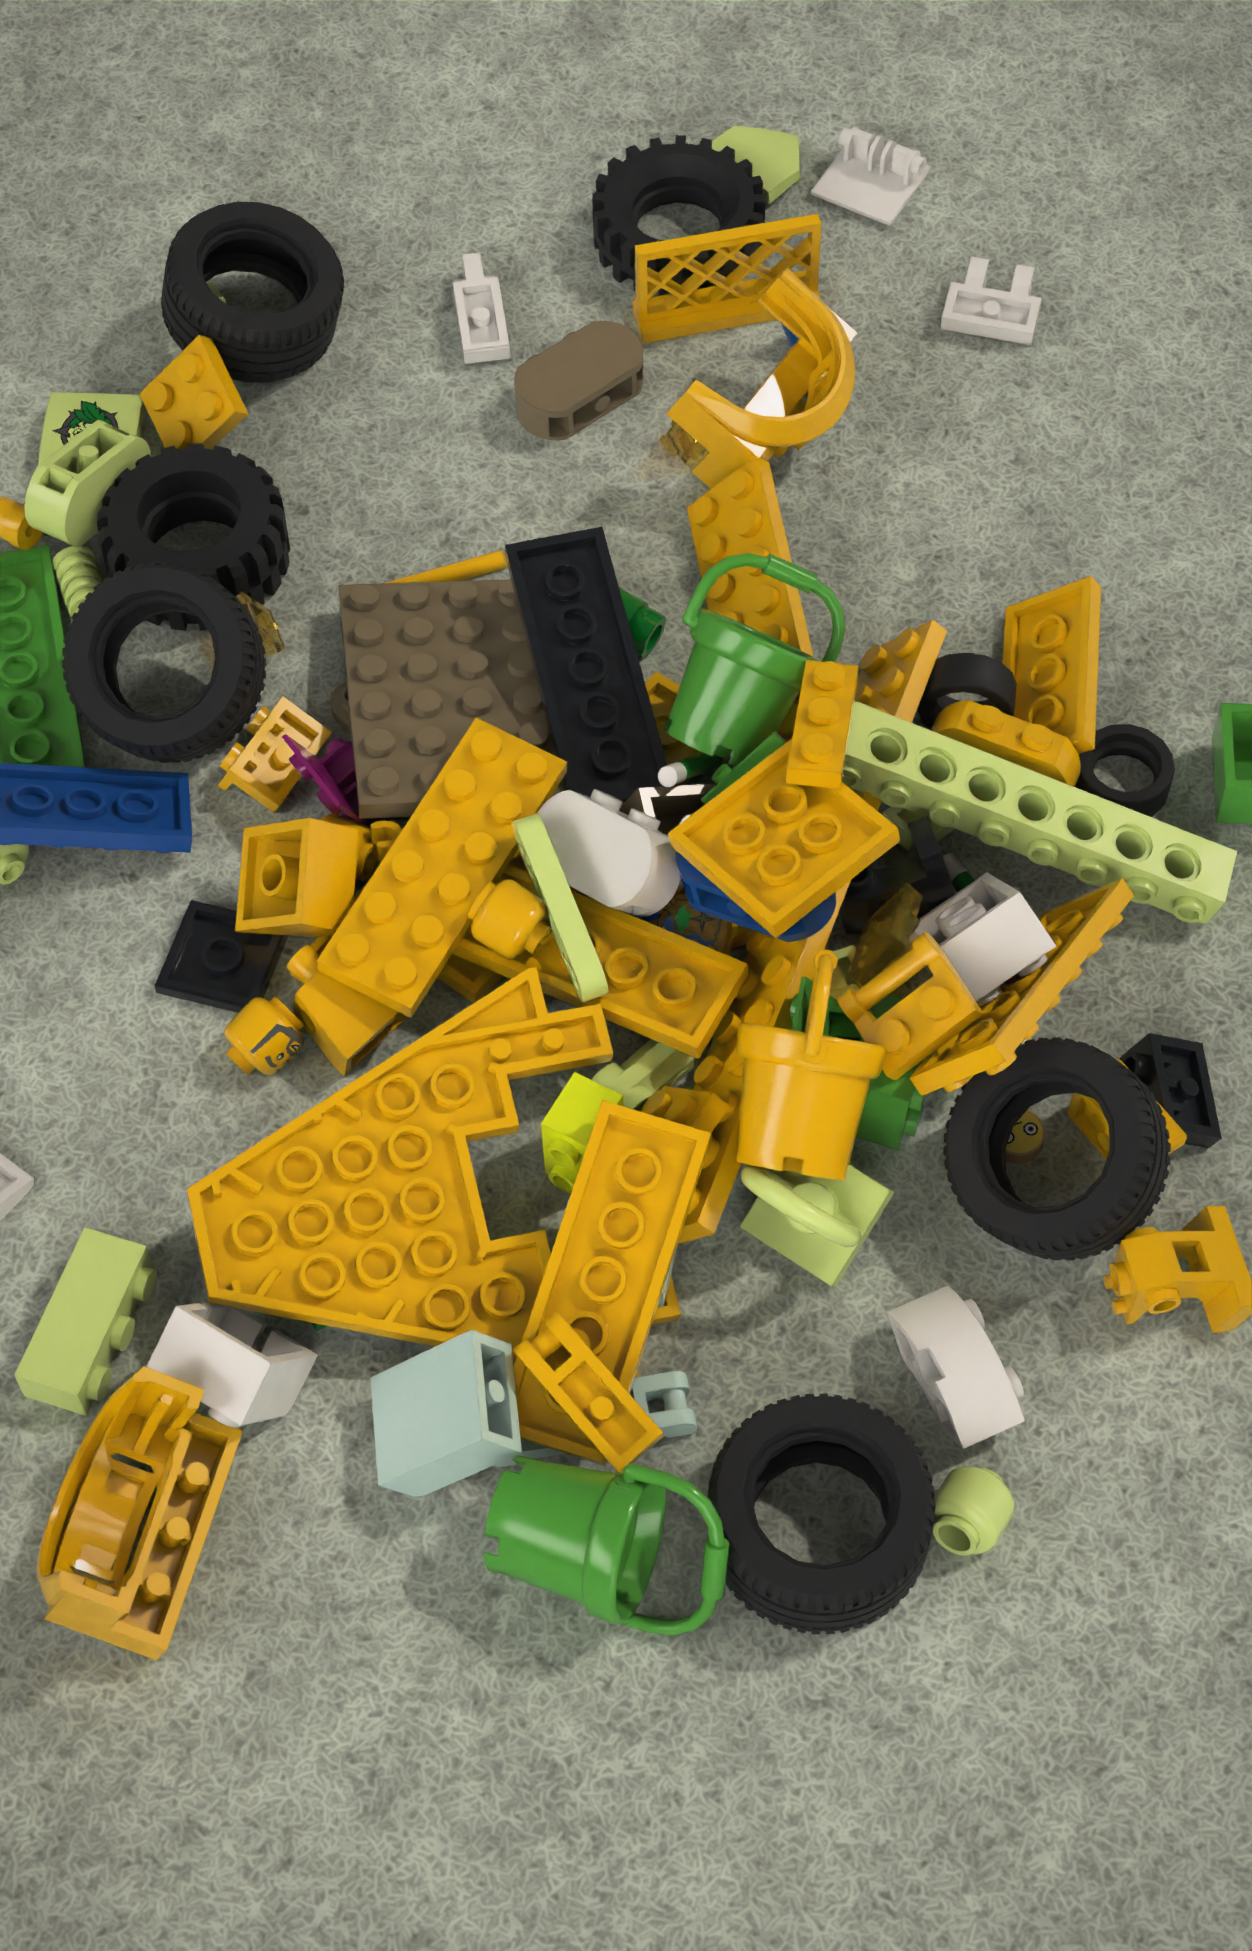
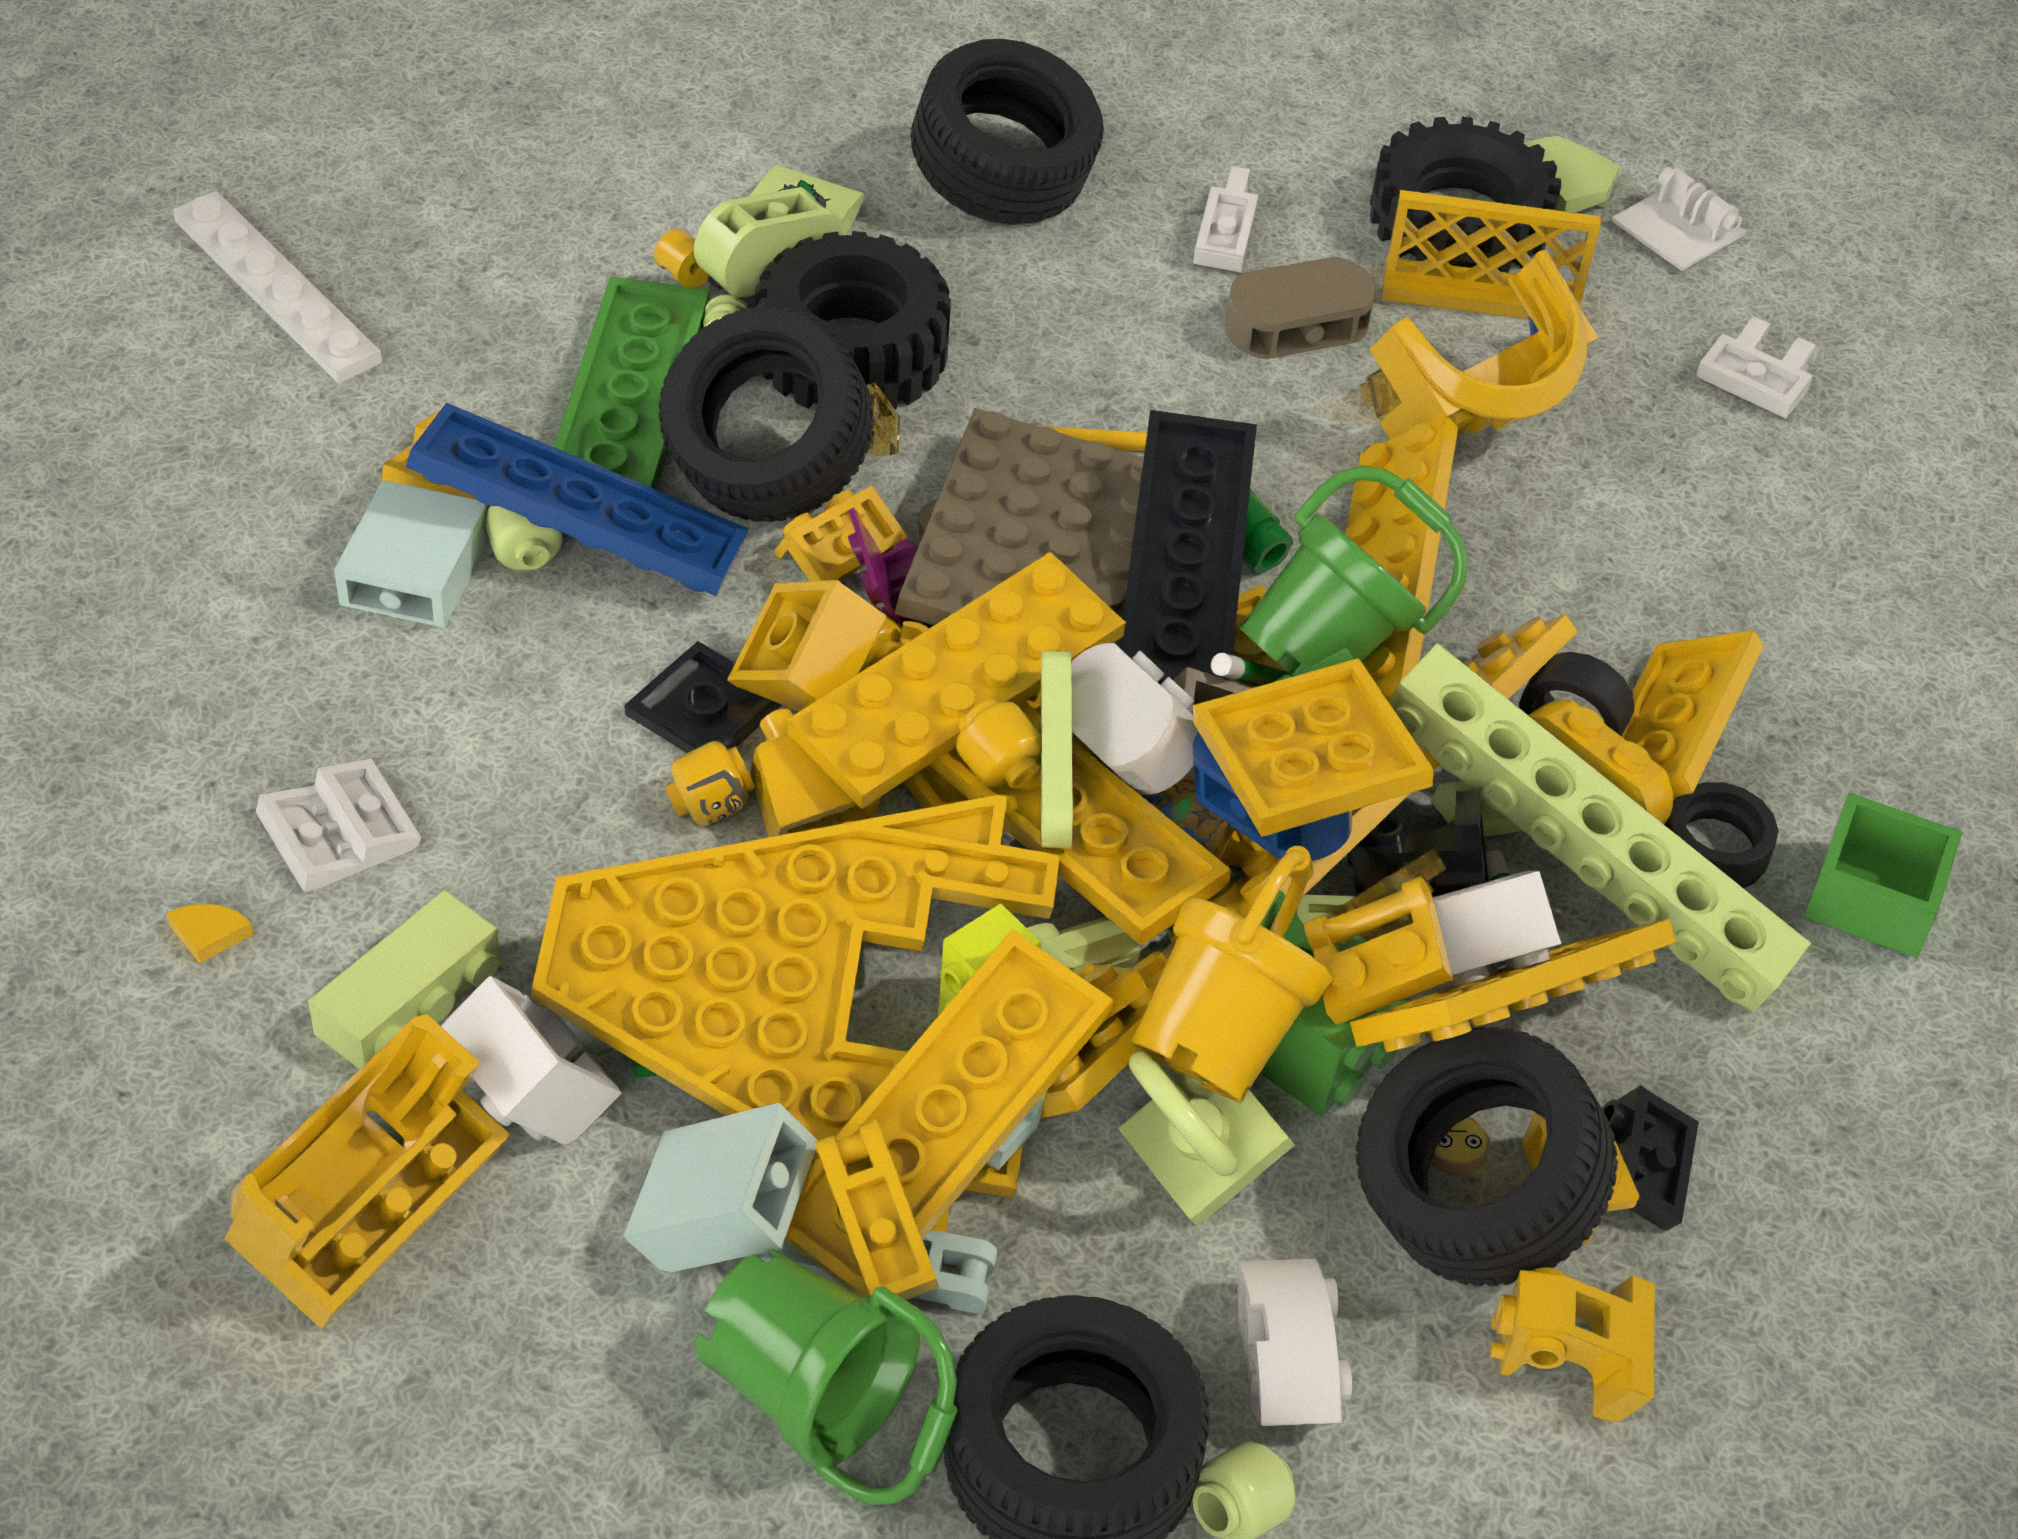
camera: 15 degrees right, 10 degrees down
(194, 398) = (910, 201): yellow plate -> none
(822, 724) = (1397, 653): yellow plate -> none

